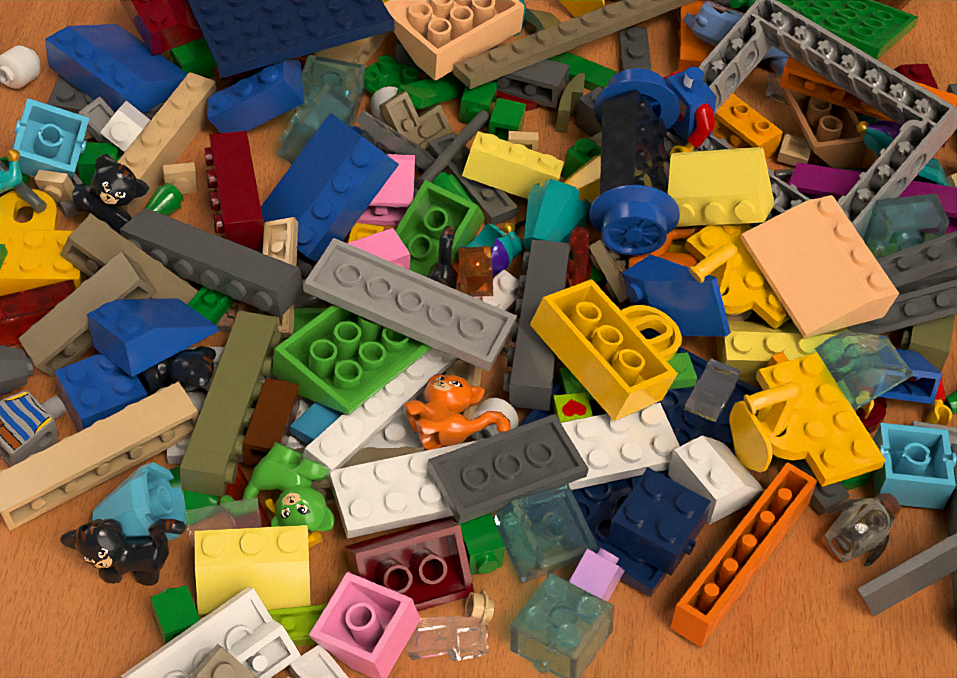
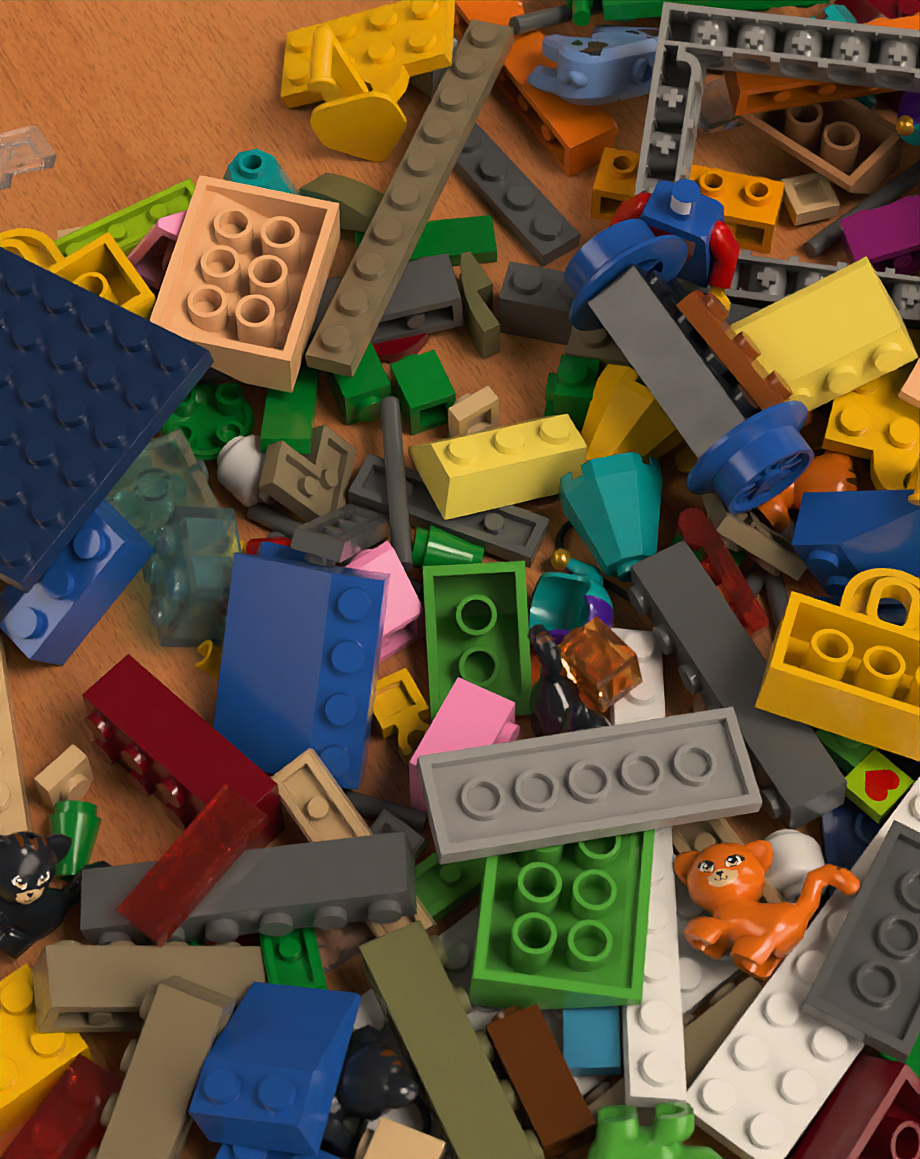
camera: 30 degrees left, 10 degrees up
(190, 227) = (193, 865): none -> clear red tile
(660, 159) = (734, 350): none -> dark orange plate

